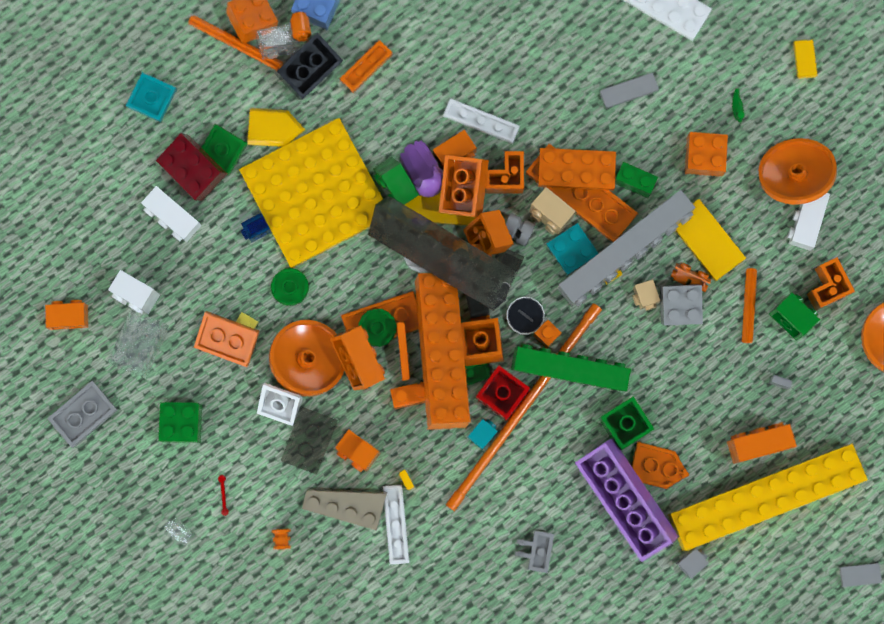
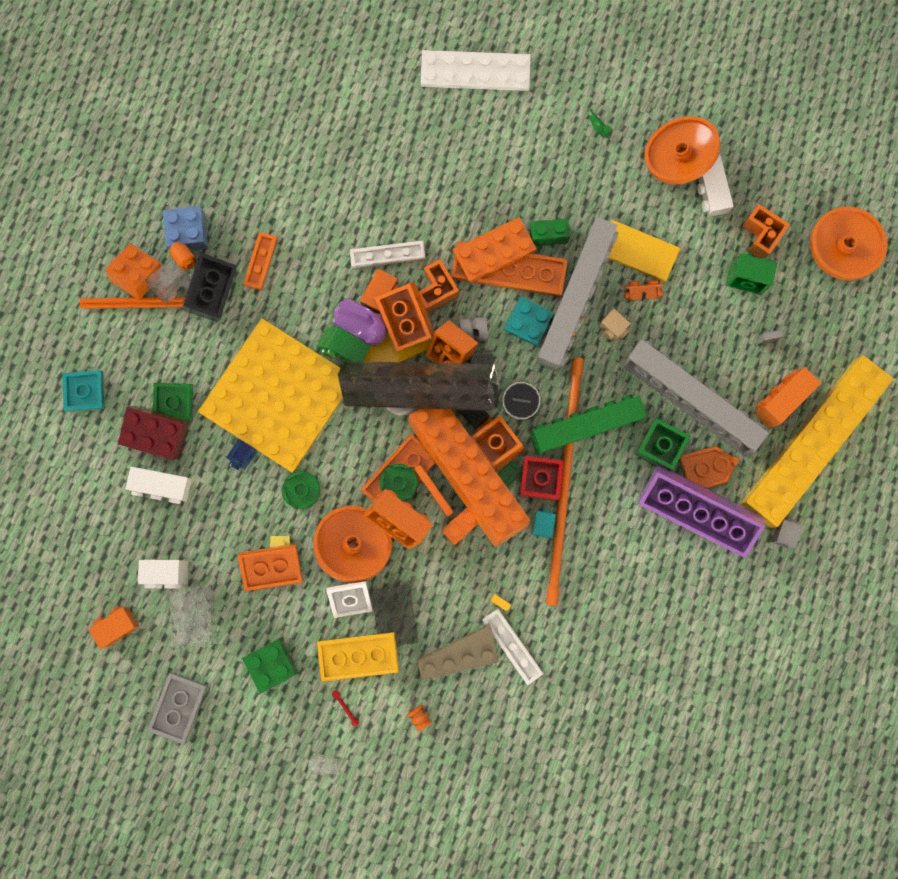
camera: 30 degrees left, 0 degrees up
(258, 457) = (358, 656): none -> yellow tile
(272, 127) = (207, 359): yellow tile -> none
(357, 450) = (442, 601): orange brick -> none
(540, 551) = (651, 598): light grey hinge -> none
(547, 334) = (550, 406): orange brick -> none
(551, 212) = (494, 298): tan brick -> none
(629, 90) = (499, 160): light grey tile -> none
(678, 397) = (695, 398): none -> light grey brick
(681, 304) = (650, 316): light grey brick -> none
(706, 154) = (596, 178): orange brick -> none
(749, 305) = (706, 287): orange axle -> none
(805, 59) = (632, 55): yellow tile -> none

